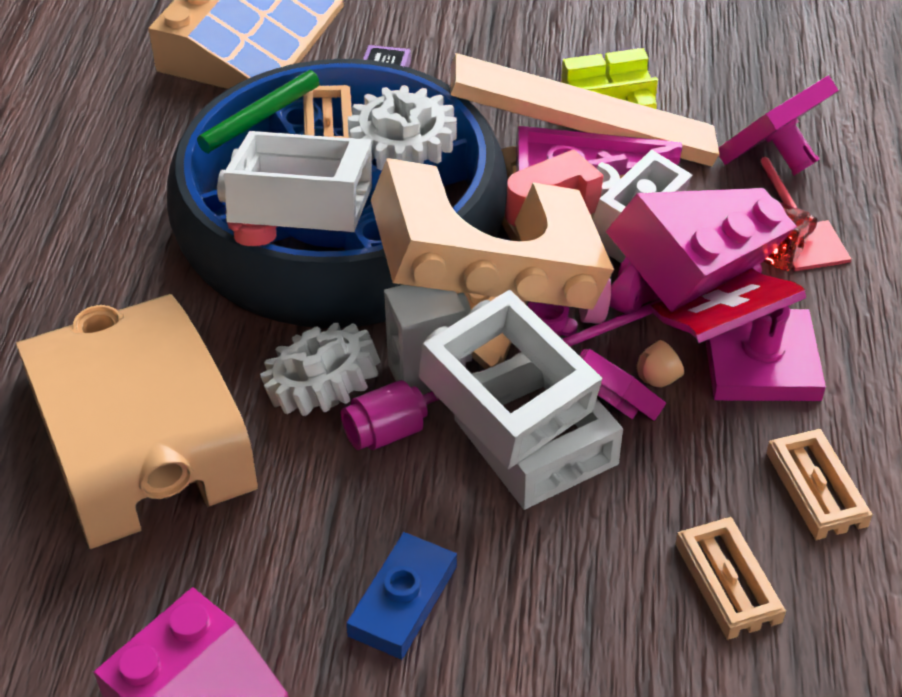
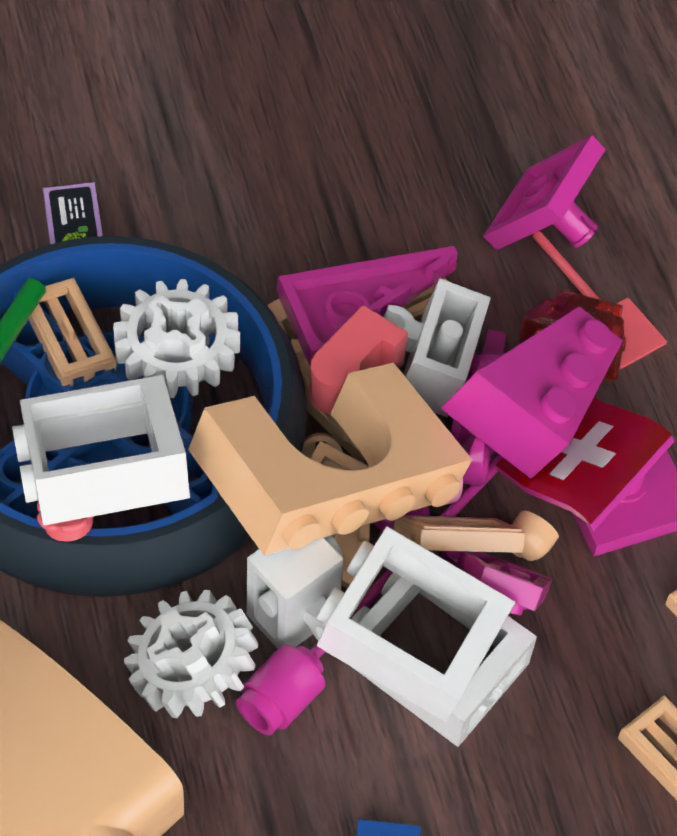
camera: 25 degrees left, 10 degrees up
(577, 107) = (333, 236): light nougat tile -> none
(596, 340) = (461, 533): none -> light nougat tile
(619, 76) = (344, 186): neon yellow hips -> none

